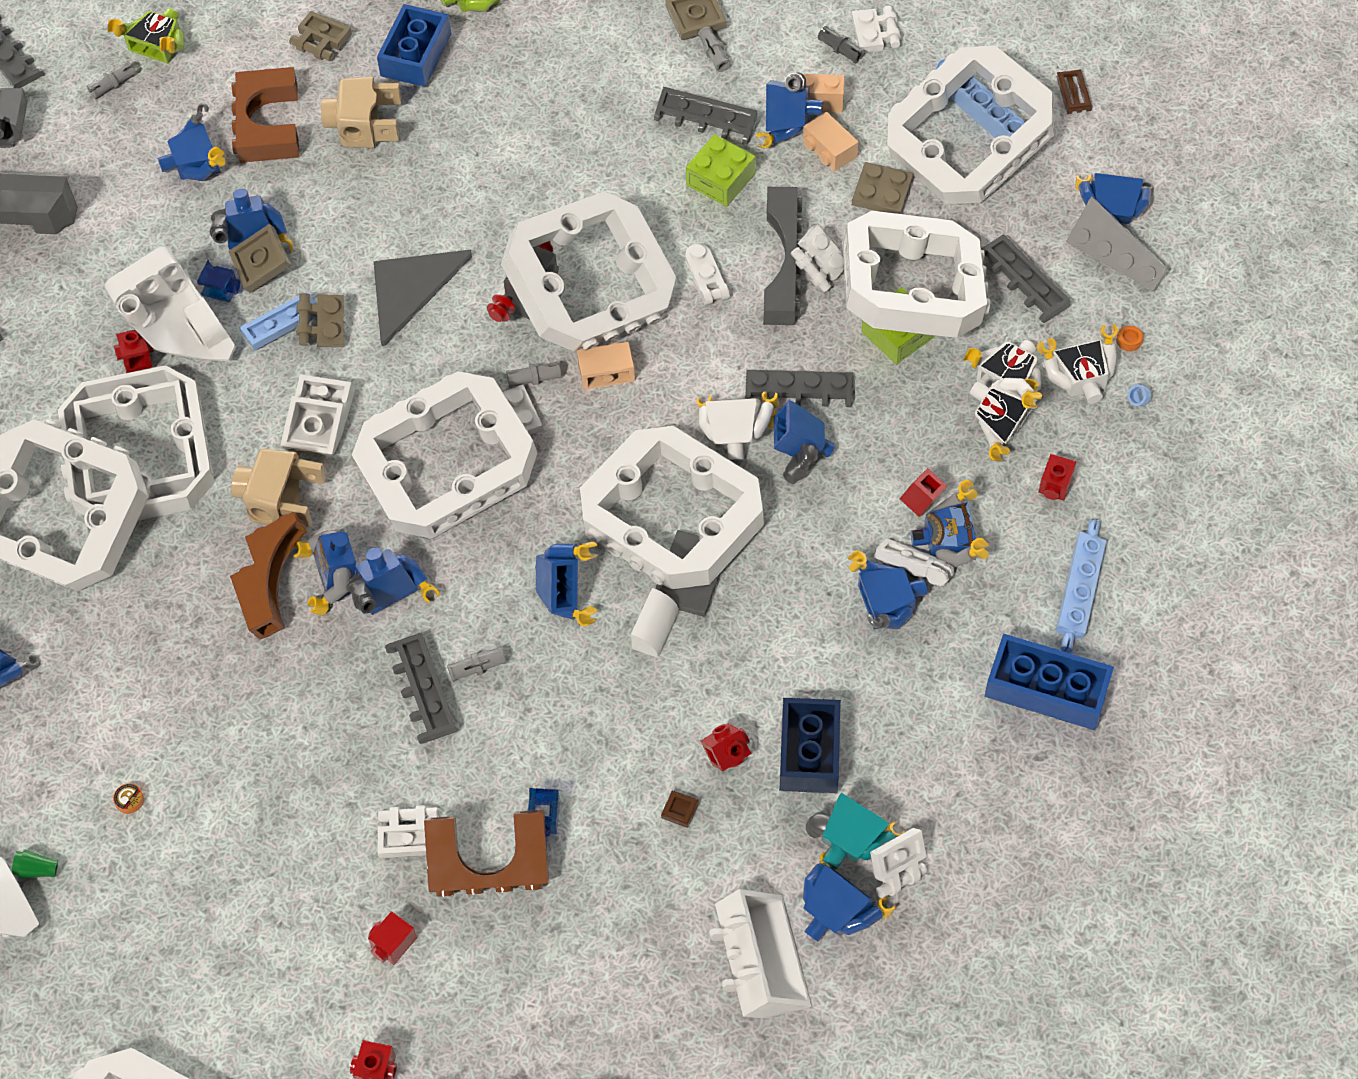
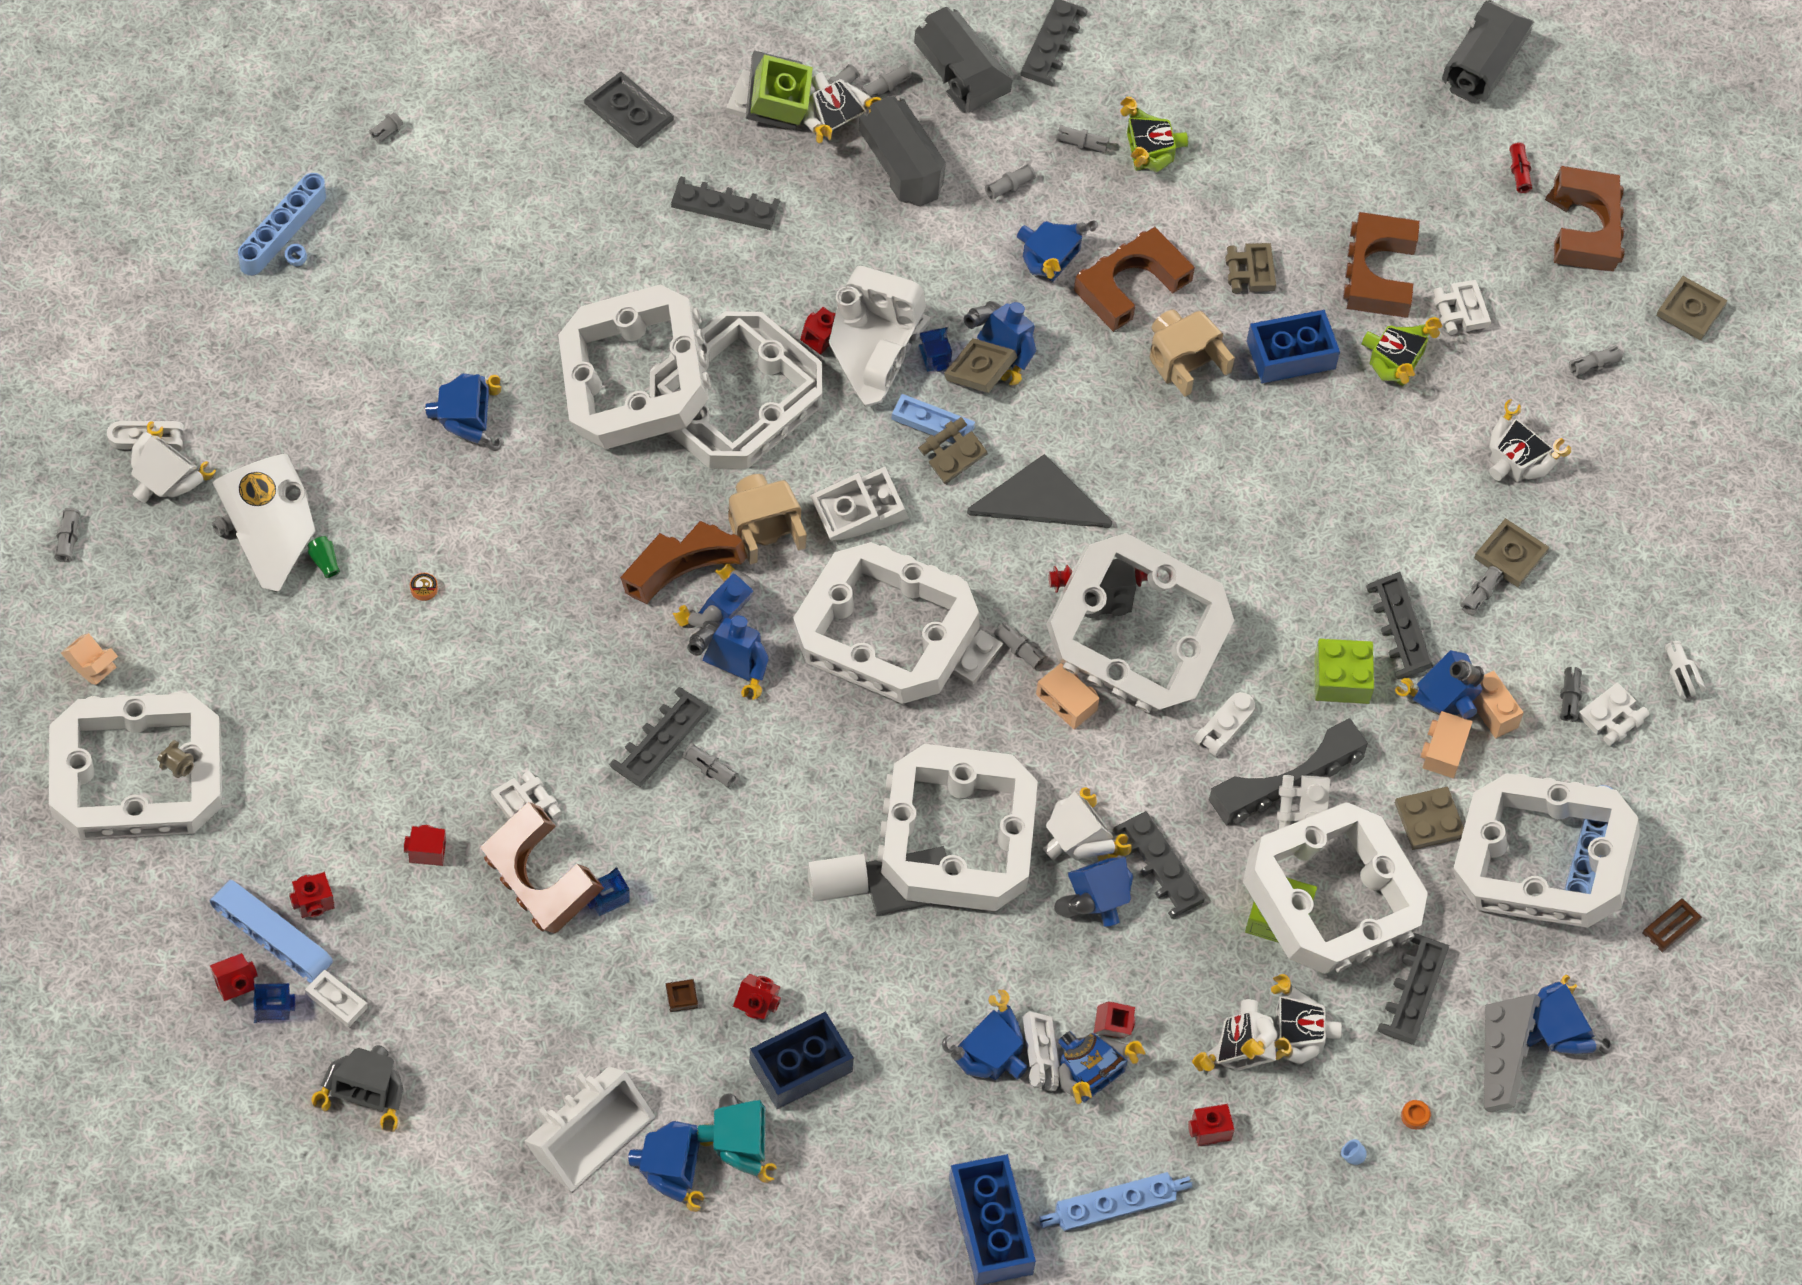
camera: 50 degrees right, 0 degrees up
(107, 148) = (1010, 181): none -> light grey pin
(559, 580) = (820, 780): blue torso -> none
(897, 856) = (737, 1179): white plate -> none
(1083, 366) = (1347, 1086): torso -> none

